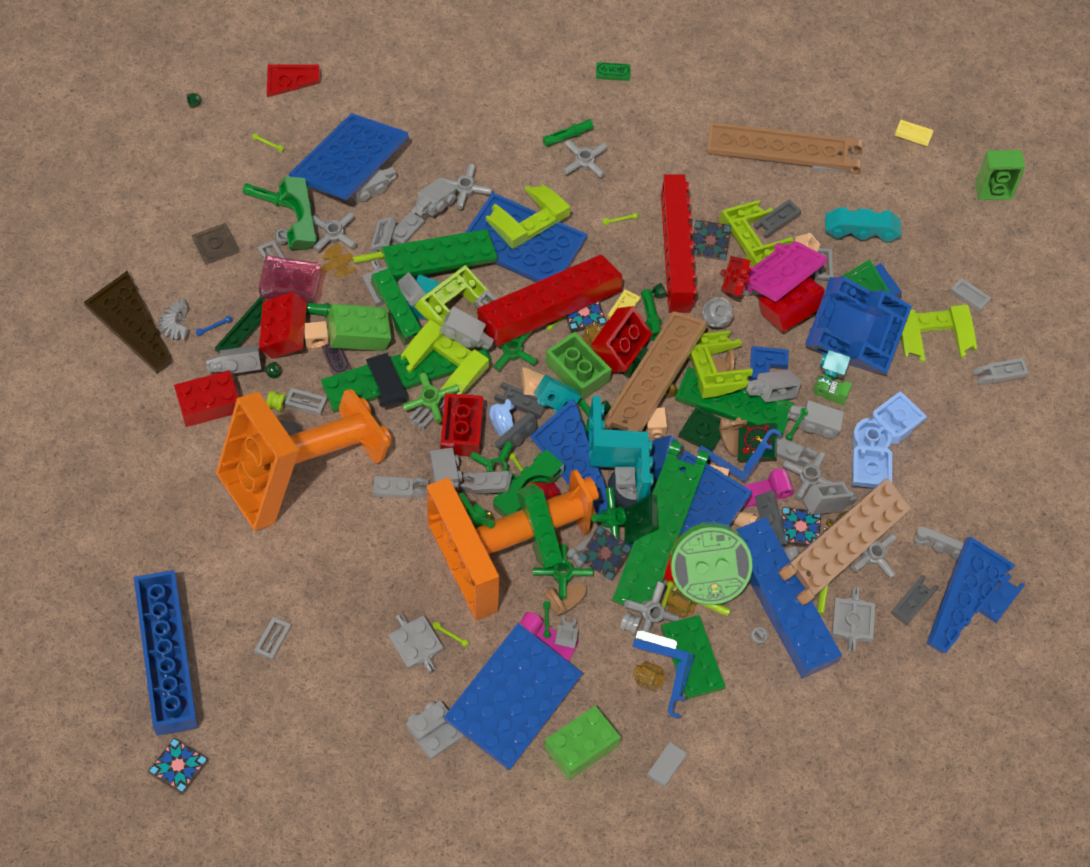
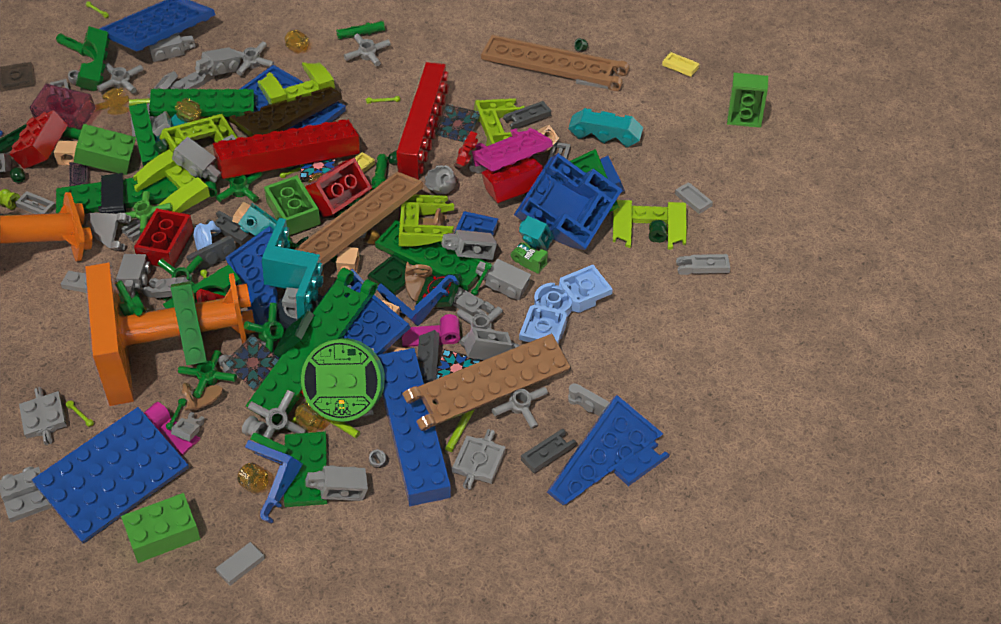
camera: 15 degrees right, 10 degrees down
(395, 420) = (104, 228): none -> light grey flag
(422, 317) = (161, 146): none -> dark green hinge
(434, 270) = (188, 110): none -> clear yellow head
(506, 157) = (296, 41): none -> clear yellow head
(529, 258) = (285, 114): none -> dark brown wing
(736, 668) = (339, 483): none -> light grey hinge
(803, 119) = (580, 44): none -> dark green hinge
(948, 340) = (658, 231): none -> dark green wheel

